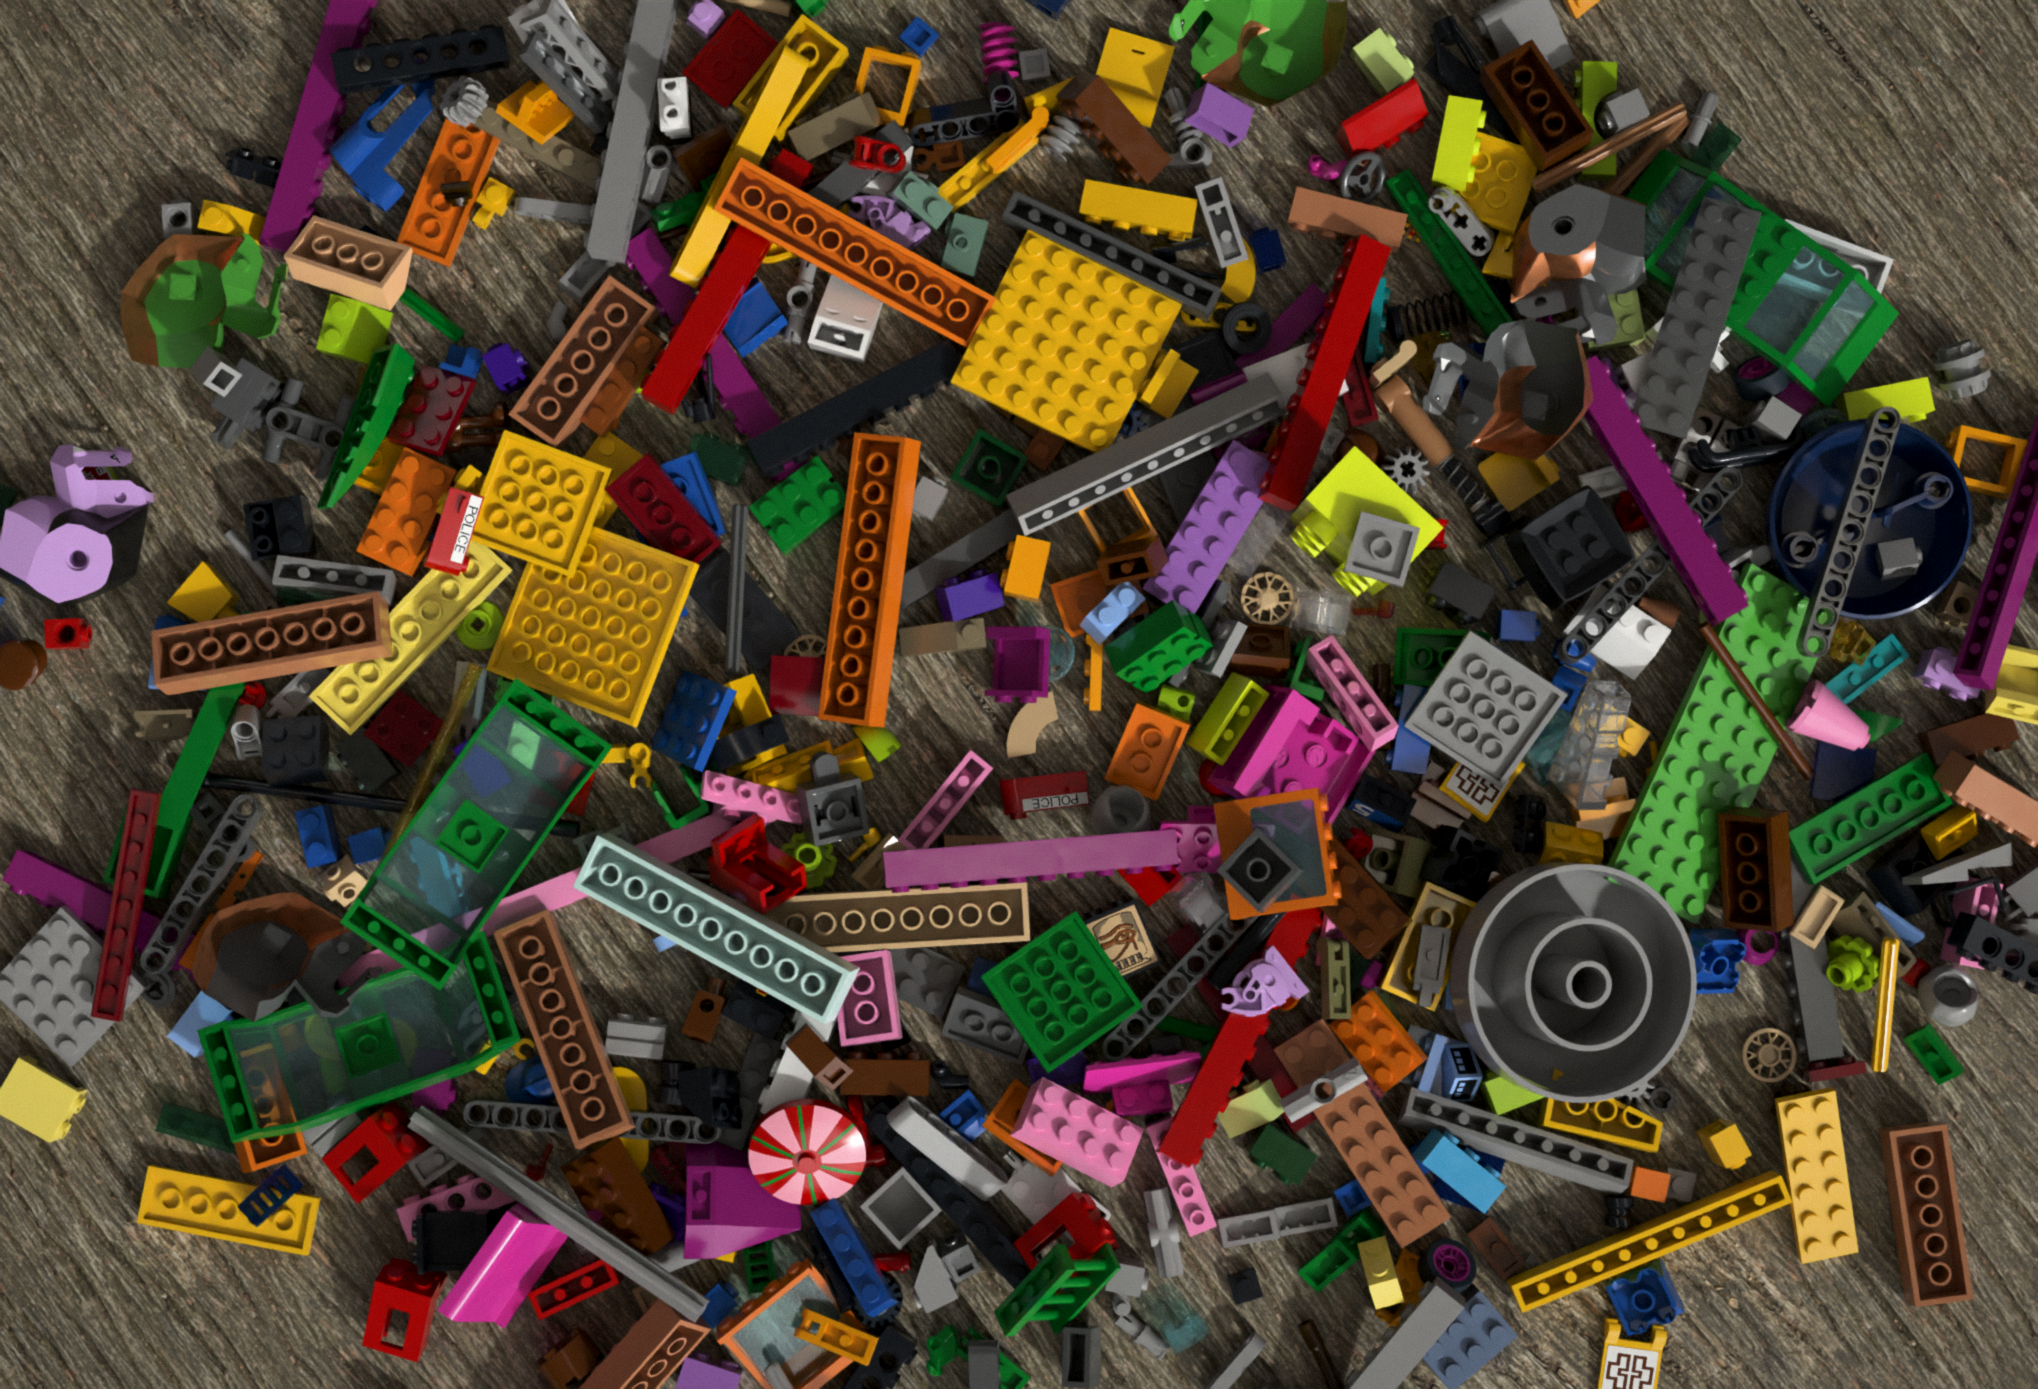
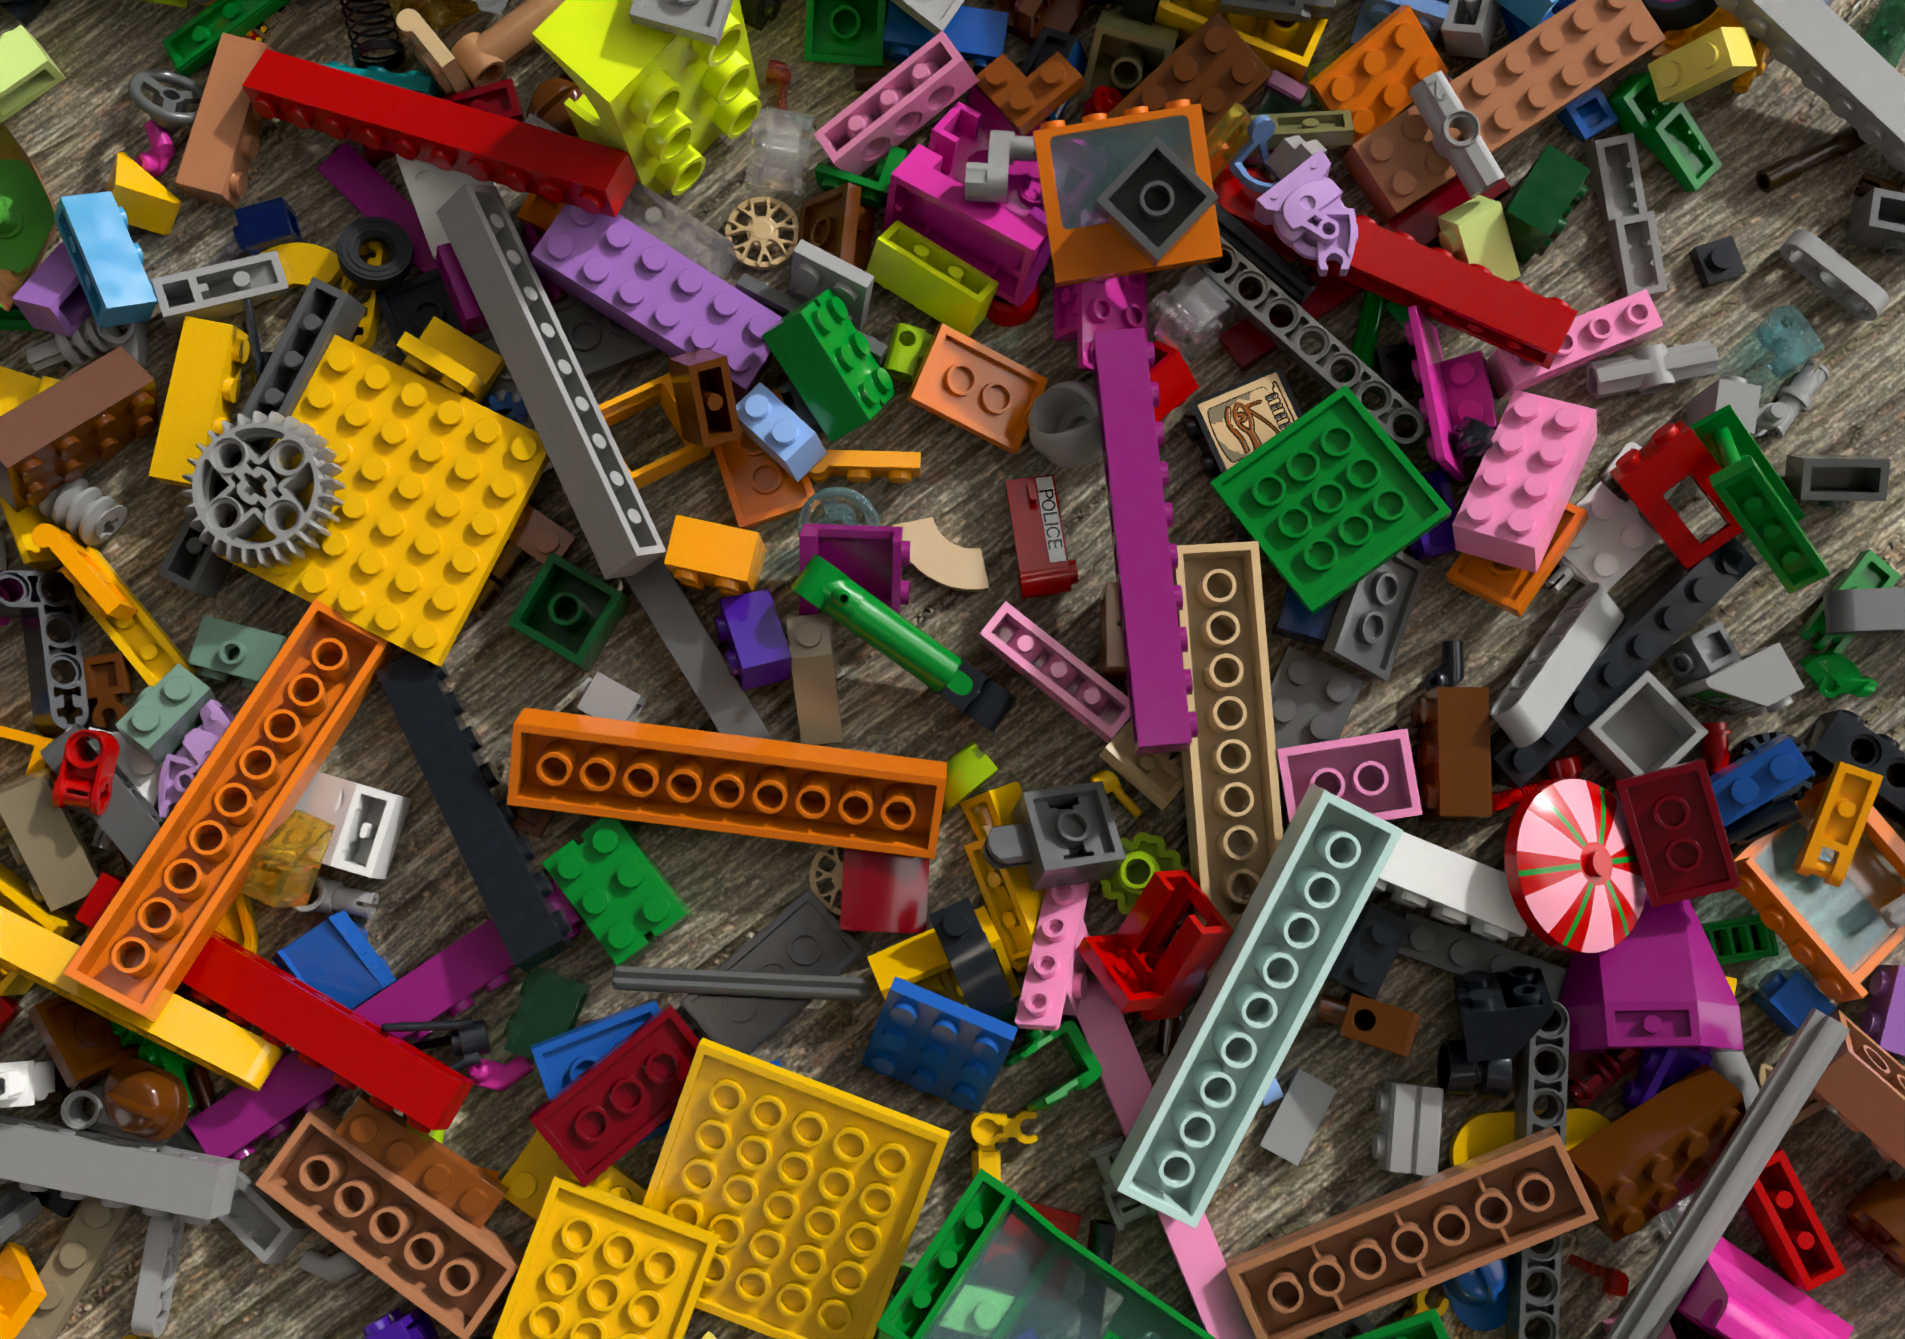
camera: 95 degrees left, 5 degrees down
(645, 963) = (1297, 1116): none -> light grey tile
(664, 200) = (145, 1100): none -> reddish brown piece
(678, 429) = (500, 1076): none -> dark pink arm
(817, 289) = (288, 861): none -> clear yellow slope
(818, 1057) = (1442, 846): reddish brown slope -> none
(828, 1220) = (1677, 833): none -> dark red plate
(944, 729) = (903, 643): none -> green piece
(965, 1115) = (1500, 648): blue slope -> none
(1065, 275) = (245, 486): none -> light grey gear
(1106, 1094) = (1471, 438): none -> black plate
(1235, 145) = (105, 258): none -> brick
(1284, 758) = (990, 180): none -> light grey beam
(1289, 158) = (142, 196): none -> yellow slope
(1310, 975) = (1291, 154): none -> light grey piece
(1319, 925) = (1227, 138): none -> clear yellow tile
(1327, 949) = (1259, 131): none -> medium blue piece
(1357, 789) = (1032, 98): none -> dark orange plate
(1384, 121) = (89, 67): red slope -> none

